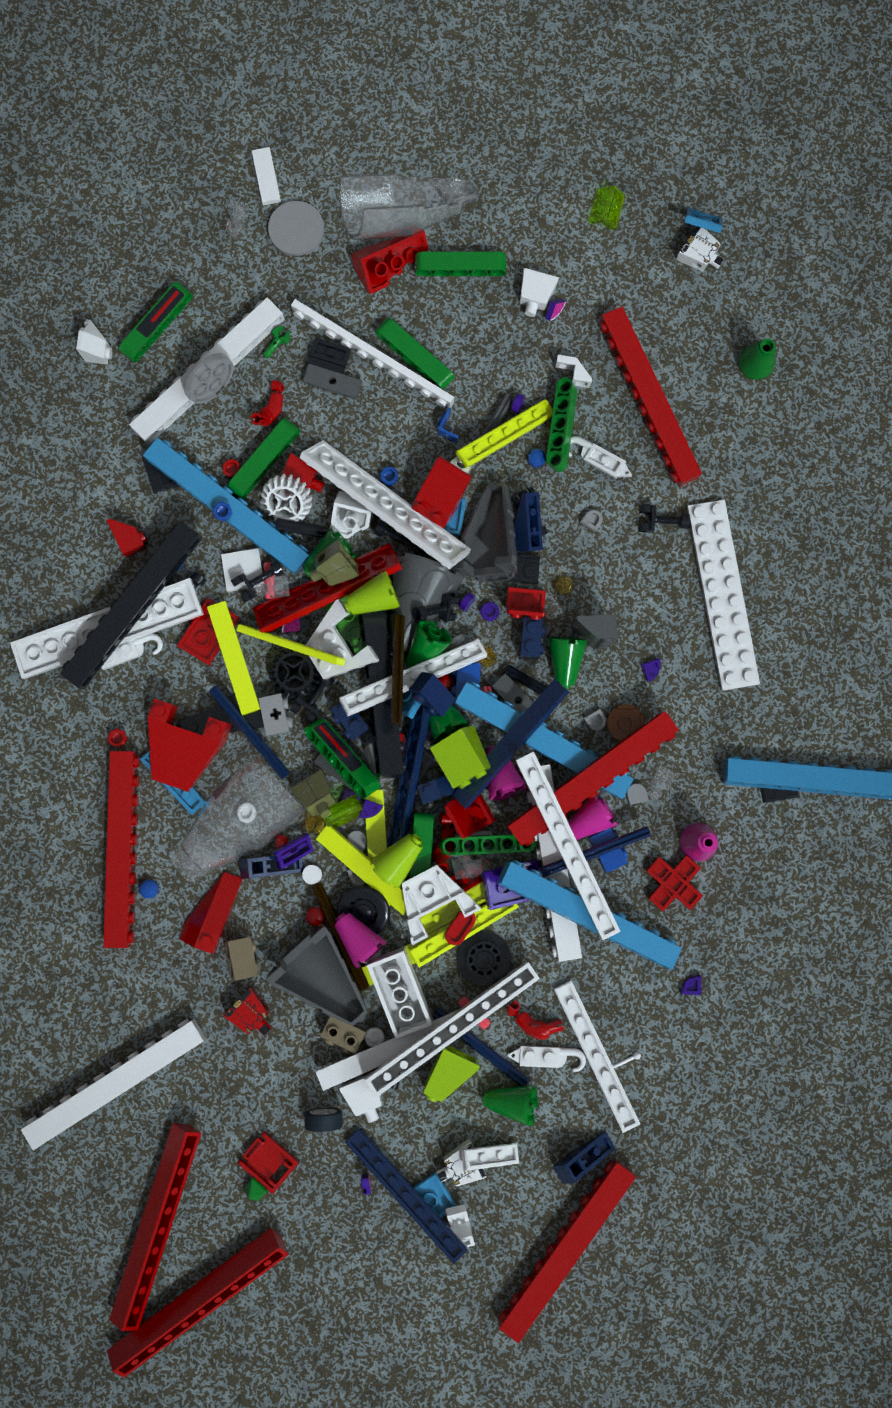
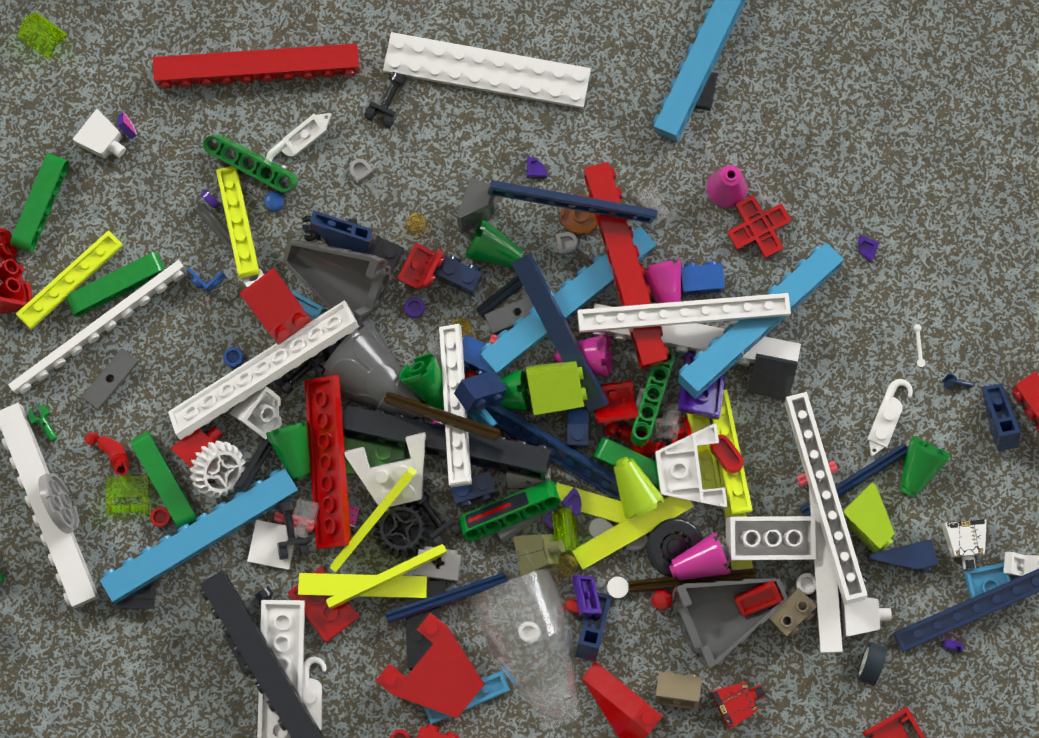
camera: 60 degrees left, 5 degrees down
(127, 537) = (191, 652): red slope -> none
(222, 511) = (206, 539): blue tile -> none
(246, 431) = (127, 488): none -> clear neon green plate
(246, 675) = (386, 576): none -> neon yellow tile
(329, 356) = (81, 372): black plate -> none
(334, 565) = (308, 443): olive torso -> none
(343, 1000) = (758, 598): none -> red tile
(373, 596) = (356, 414): lime cone -> none
(403, 314) = (69, 280): none -> neon yellow tile
(431, 1123) = (911, 557): none -> dark blue slope
(444, 610) = (392, 373): black bar -> none
(467, 601) = (395, 325): dark purple tile -> none
(484, 958) = (767, 443): black wheel -> none
(490, 1156) = (966, 508): white tile -> none
(531, 1027) = (852, 420): red arm -> none
(543, 943) = (772, 376): none -> black tile
(580, 375) = (205, 126): white slope -> none
(597, 1056) = (903, 367): white tile -> none
(599, 850) = (699, 285): dark blue axle -> none
(600, 1102) = (951, 380): none -> dark blue hand
(628, 711) = (571, 201): none -> dark blue tile
(636, 794) = (656, 230): light grey tile -> none

